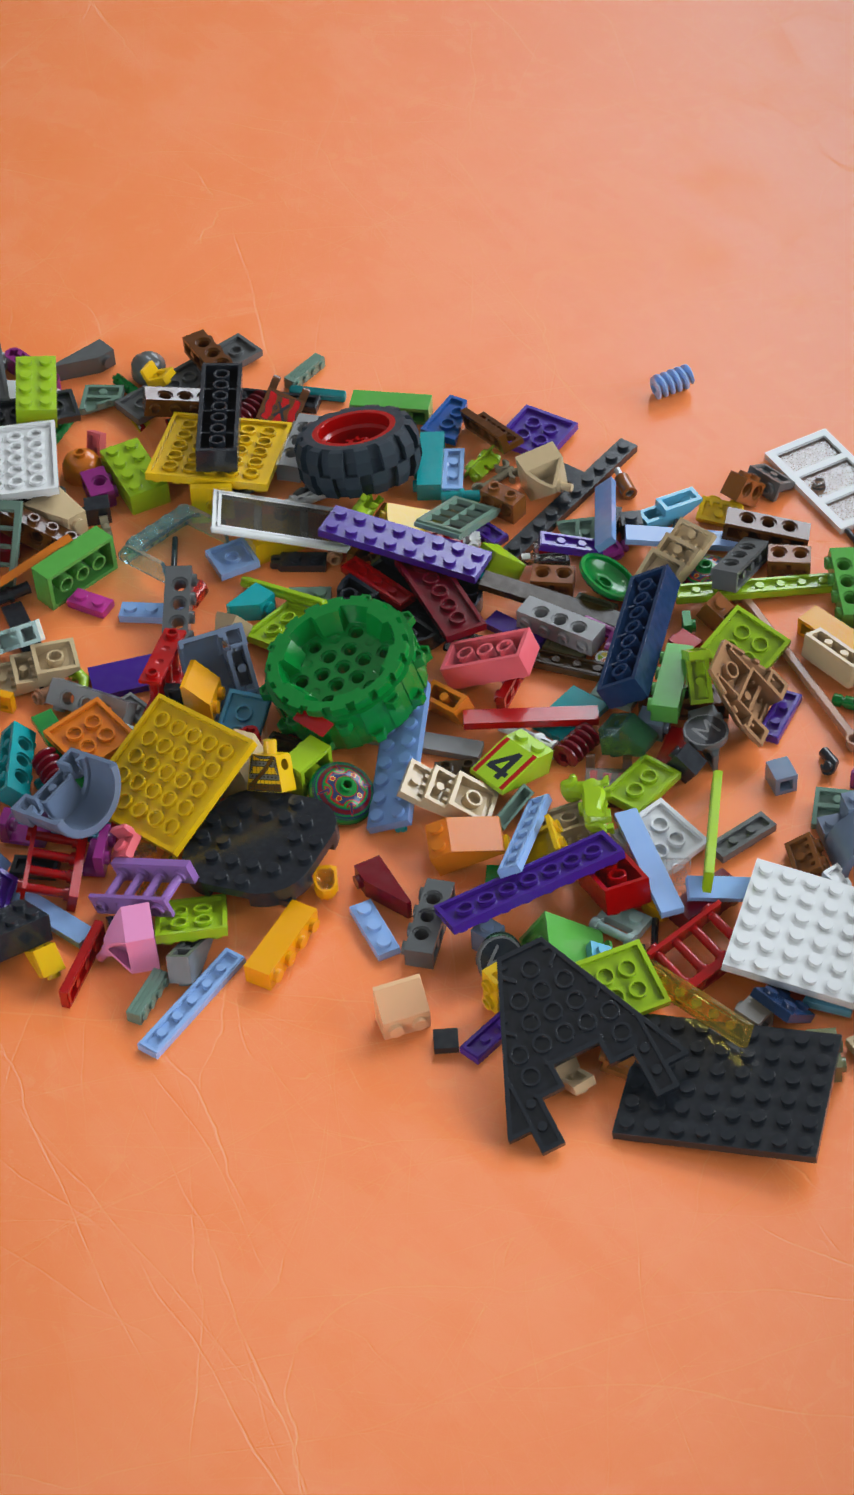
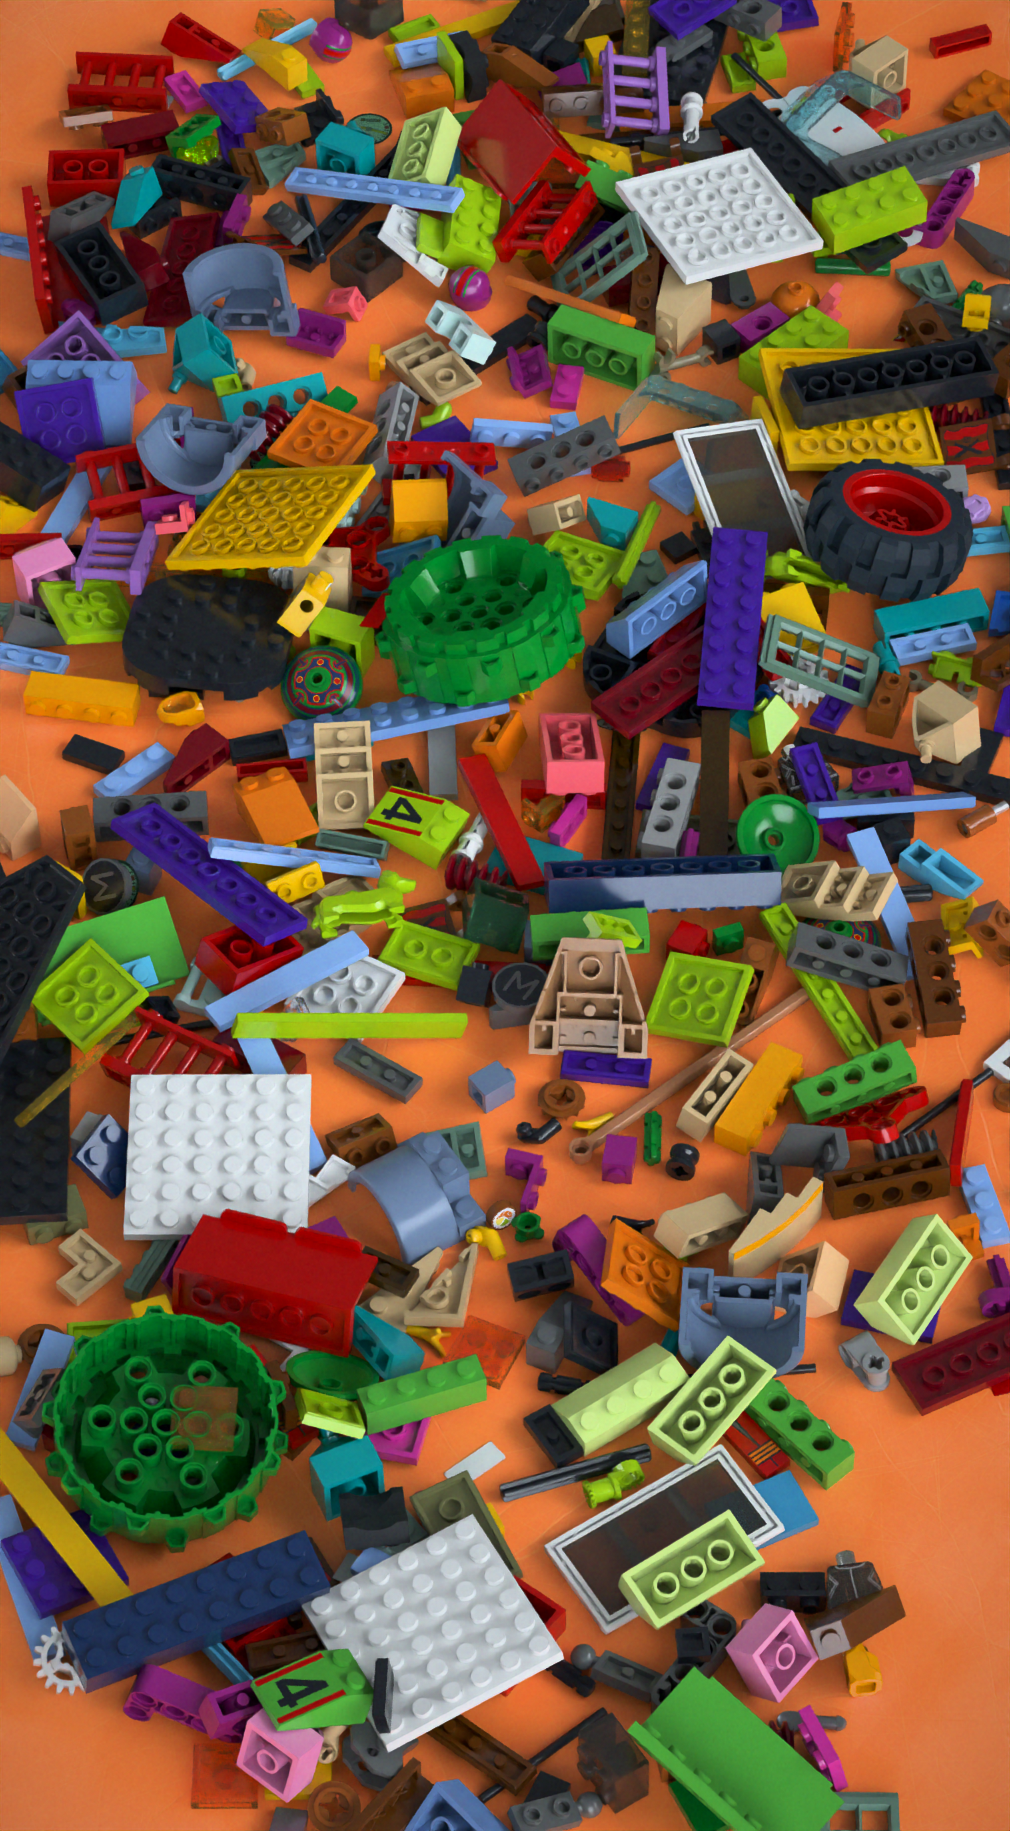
camera: 70 degrees right, 5 degrees up
(34, 602) = (538, 336): none -> black wheel
(66, 616) = (529, 370): none -> magenta bracket
(132, 636) = (510, 433): none -> light blue plate
(291, 577) = (678, 547): none -> black tile
(341, 951) = (93, 754): none -> black tile
(369, 573) = (658, 609): none -> medium blue slope
(380, 844) = (257, 747): none -> black tile
(415, 843) = (295, 767): none -> red piece
(443, 965) = (78, 837): none -> dark orange brick
(524, 694) = (542, 815): none -> clear yellow bracket
(542, 686) = (569, 821): none -> dark pink plate
(575, 515) = (884, 777): none -> magenta bracket
(799, 737) = (555, 1091): none -> dark orange gear
(830, 732) = (593, 1124): none -> yellow bar

